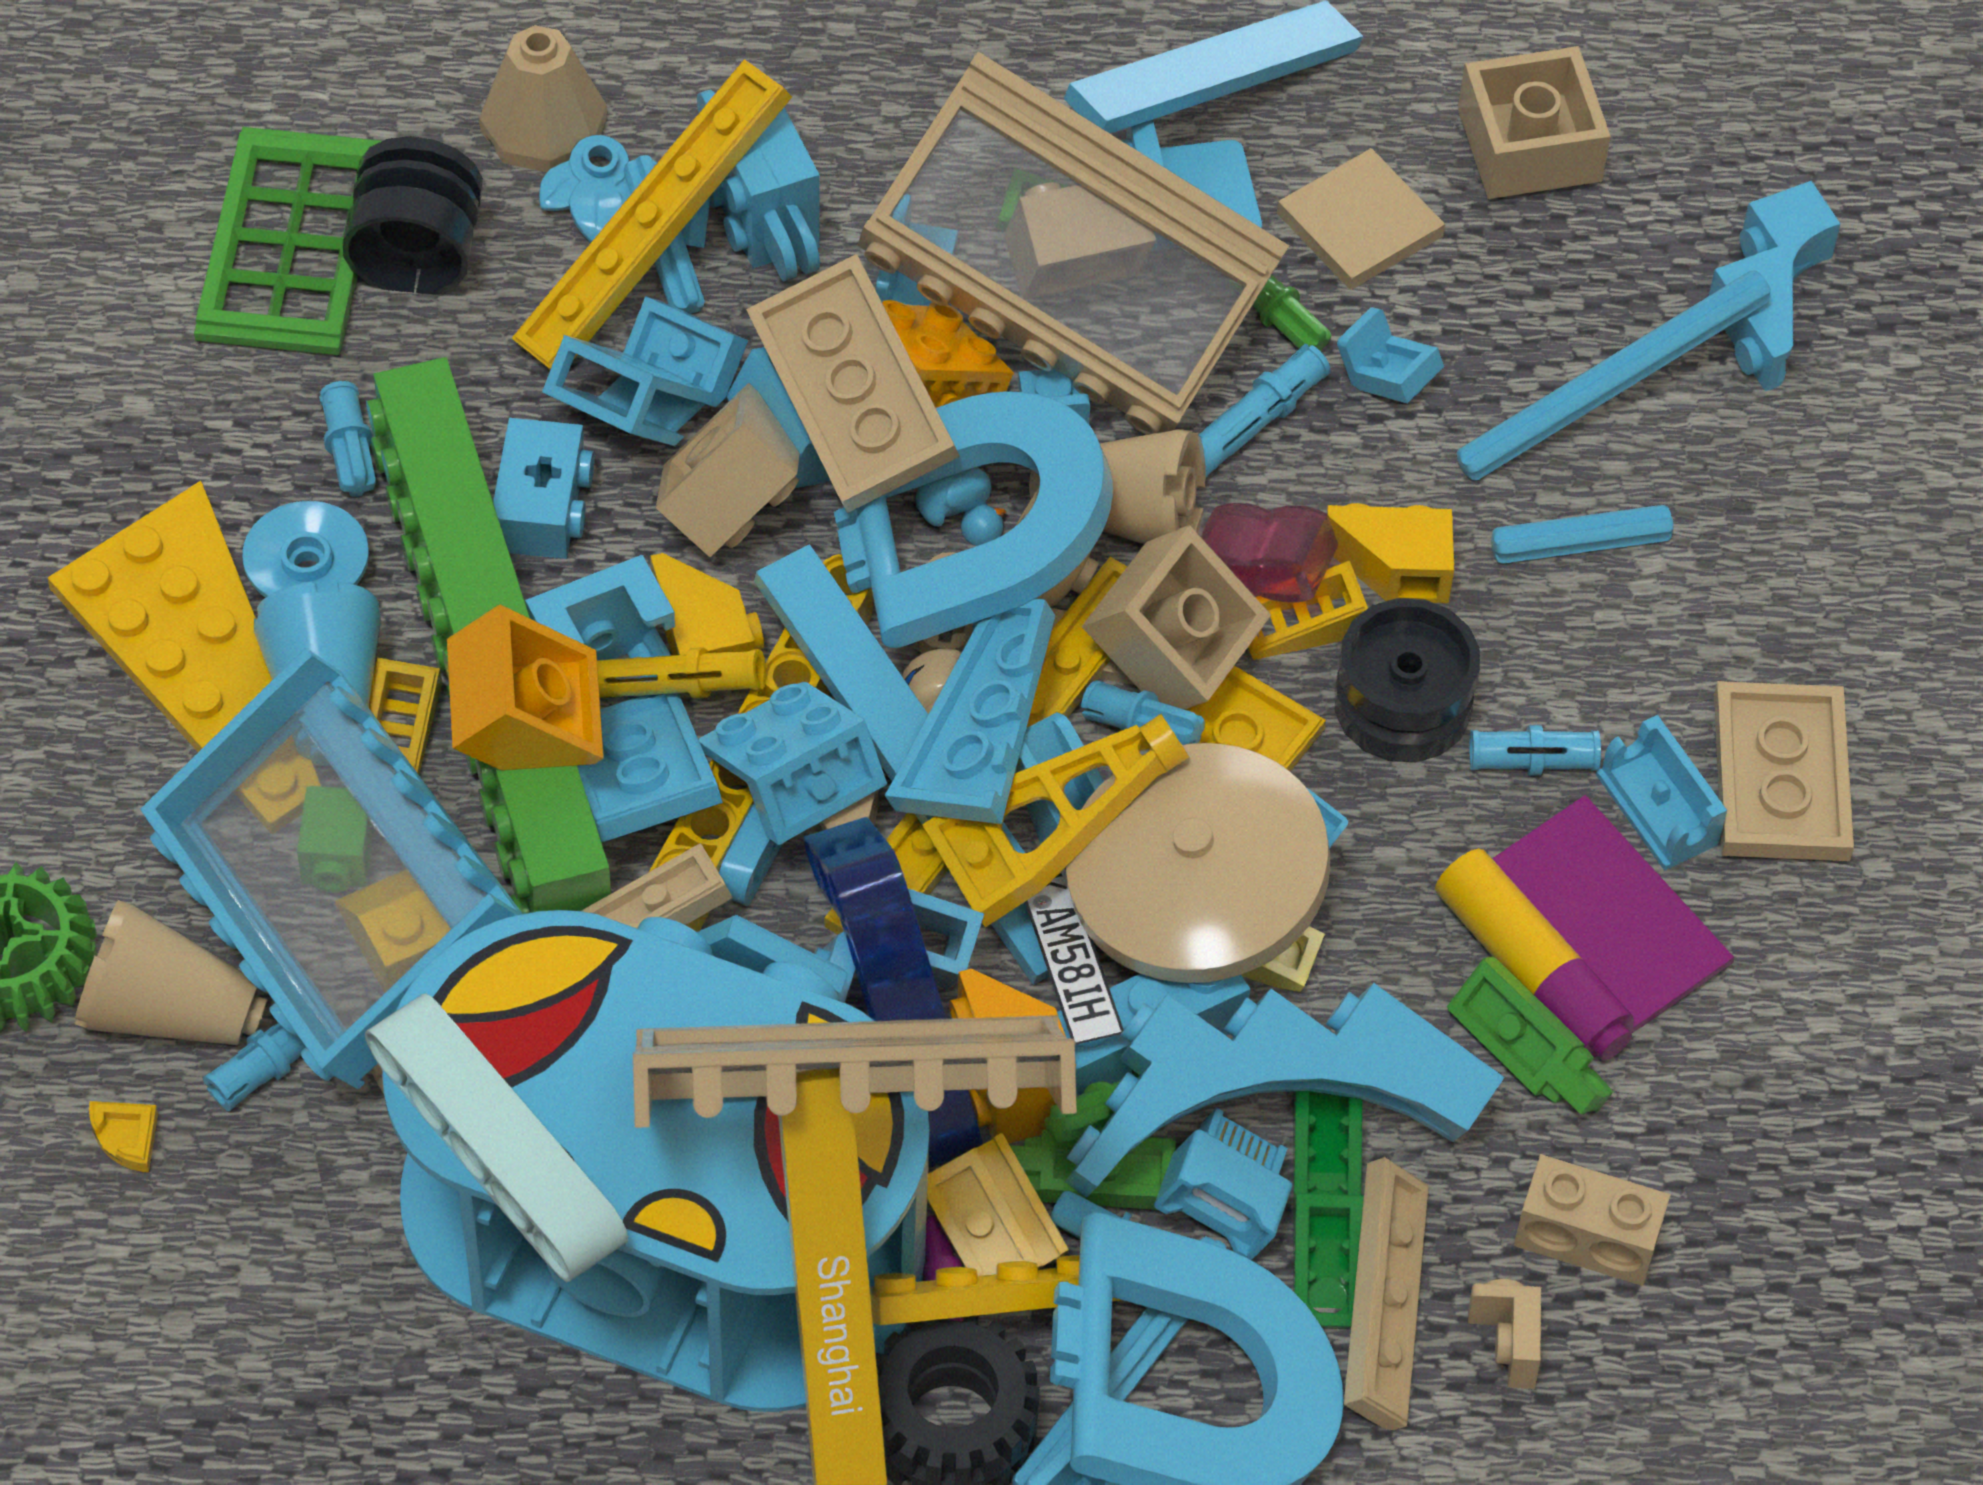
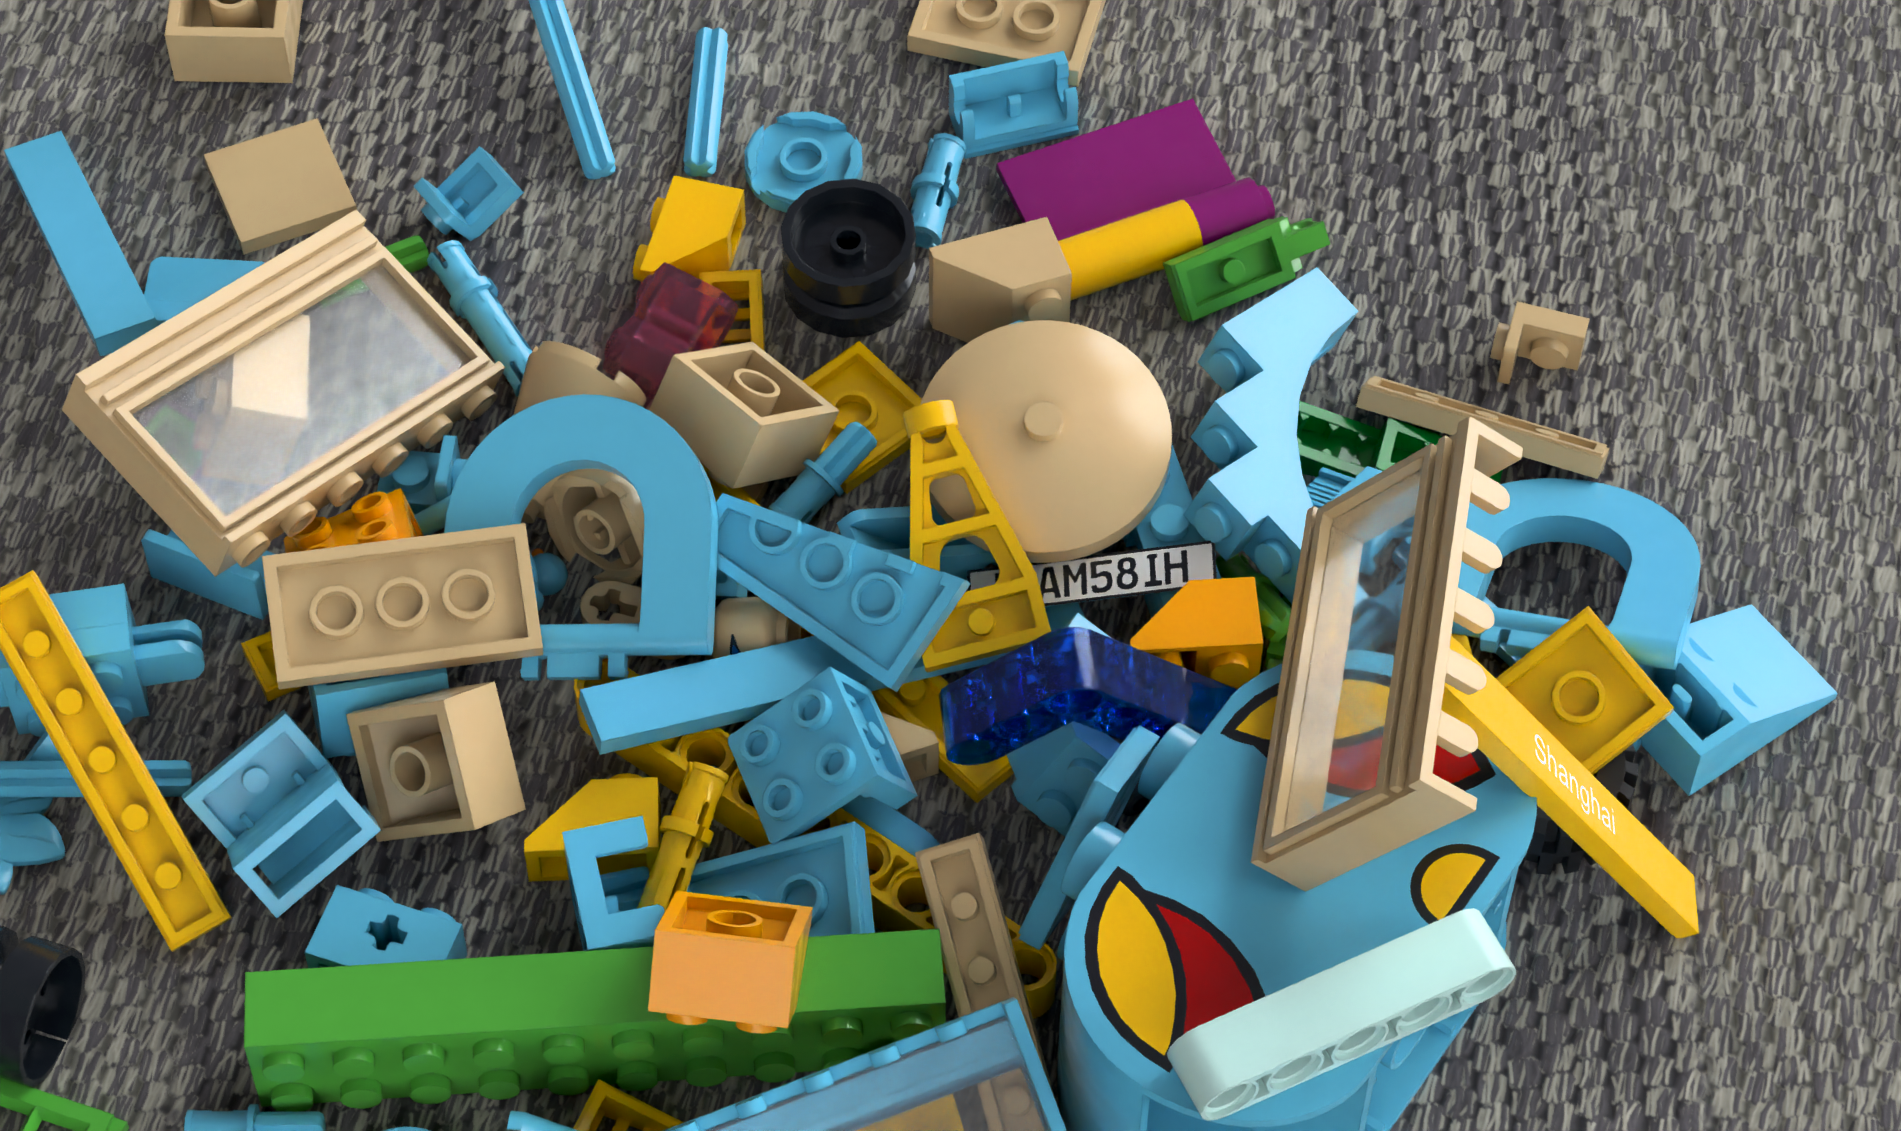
camera: 75 degrees left, 0 degrees up
(1011, 1382) = (1587, 691): none -> yellow tile
(1407, 820) = (998, 280): none -> tan slope
(1534, 653) = (783, 177): none -> medium azure tile
(1591, 1220) = (1443, 258): tan brick -> none

